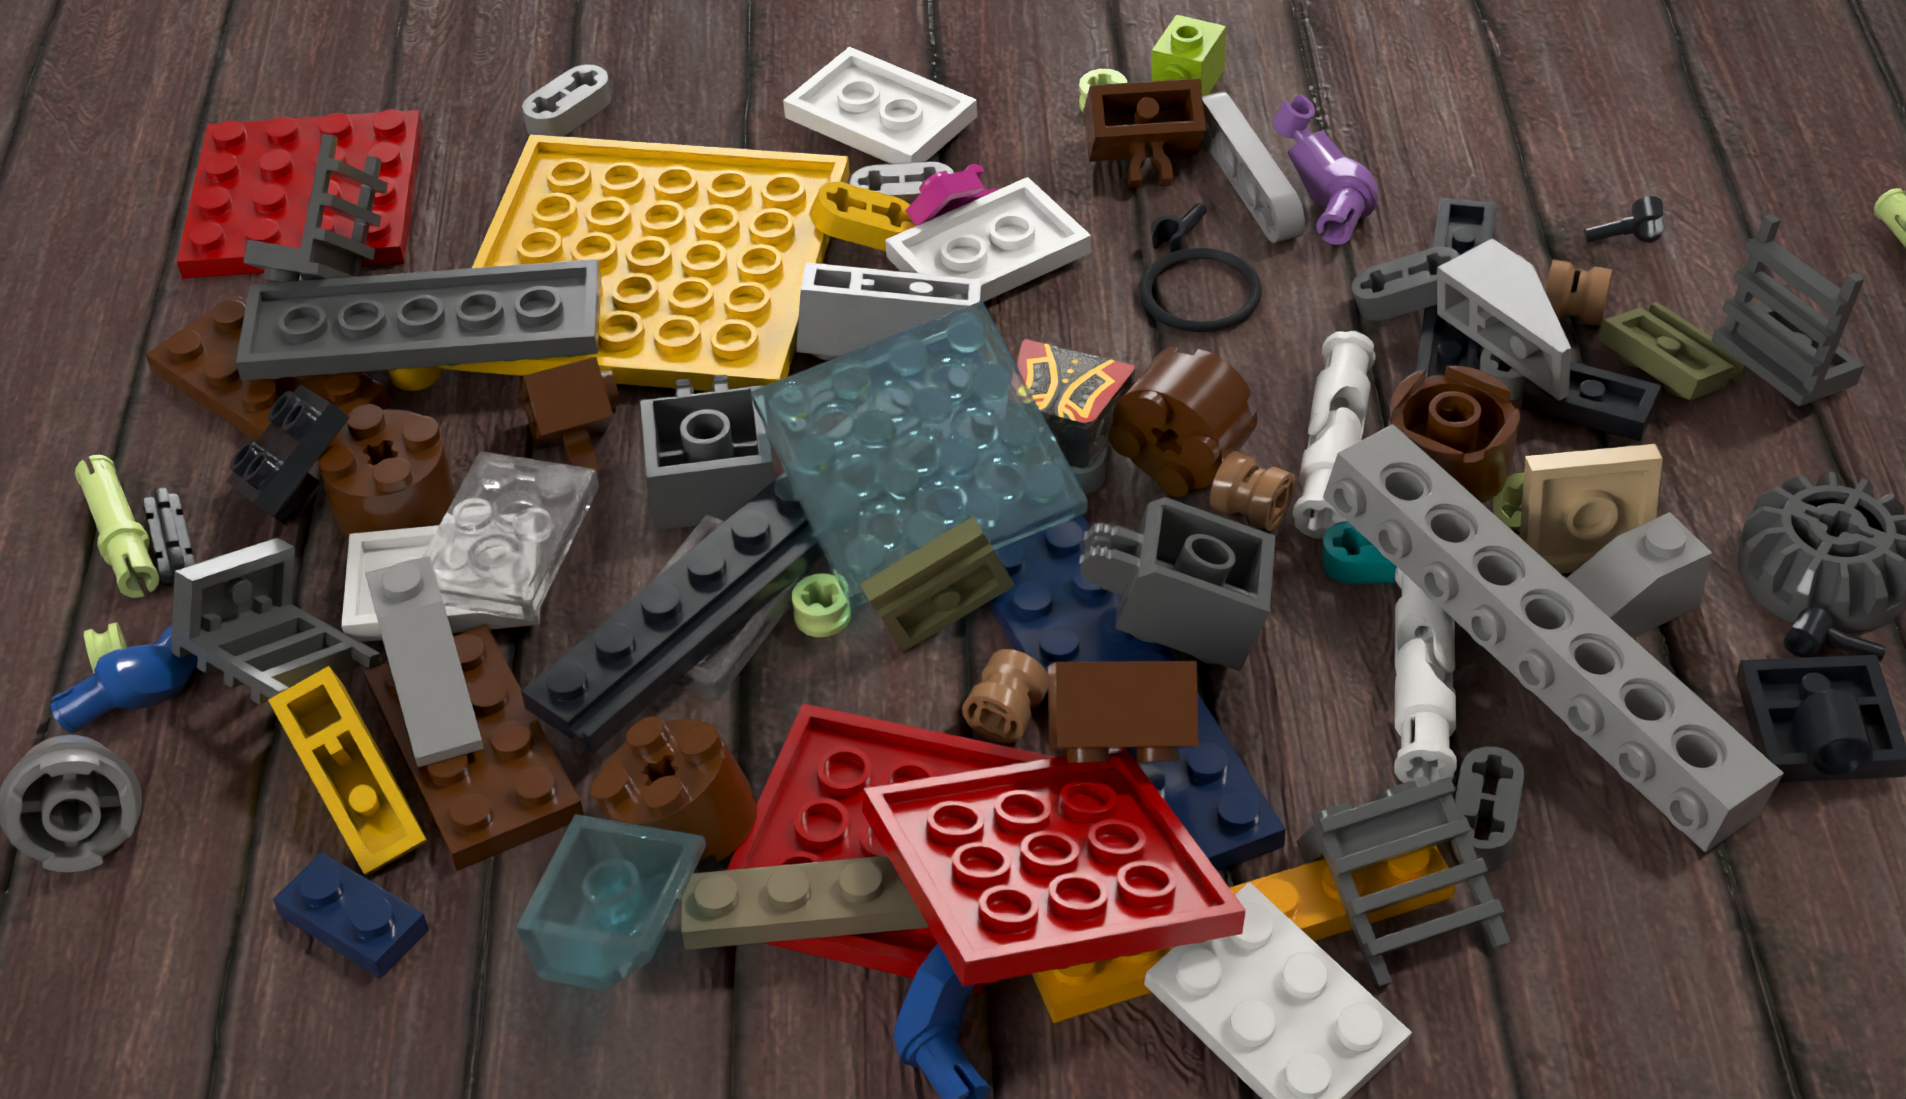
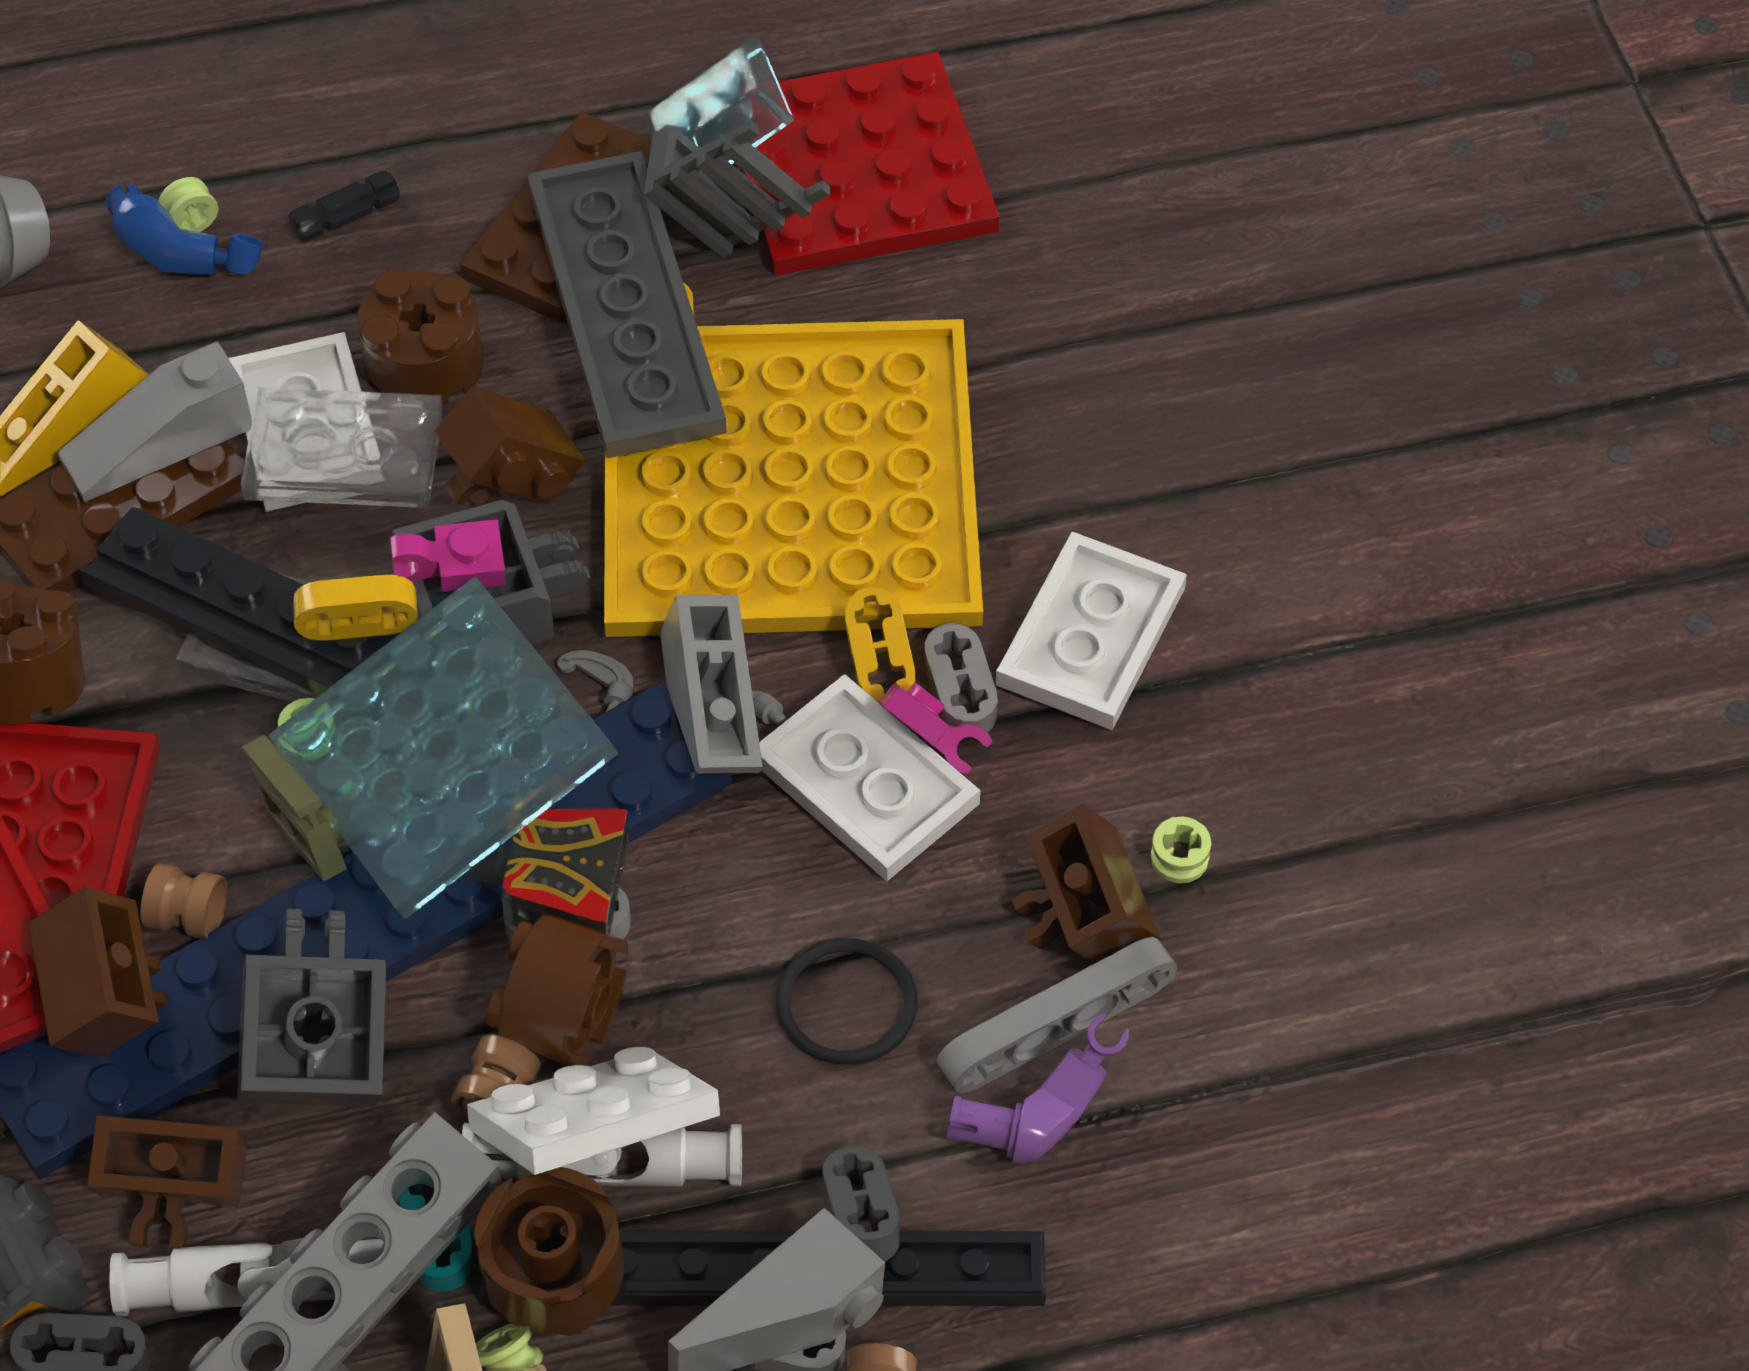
camera: 75 degrees right, 10 degrees up
(121, 539) = (361, 157): yellowish green pin -> none
(202, 238) = (726, 97): none -> clear light blue slope
(242, 621) = (212, 274): dark grey plate -> none
(277, 465) = (419, 246): black plate -> none
(567, 101) = (1051, 342): light grey beam -> none
(703, 420) = (454, 556): none -> dark pink plate
(740, 497) = (355, 607): none -> yellow beam
(1175, 229) = (935, 962): black hand -> none
(1190, 51) = (1246, 924): lime brick -> none
(1317, 402) = (592, 1109): none -> white plate
(1317, 709) = (166, 1164): none -> reddish brown brick

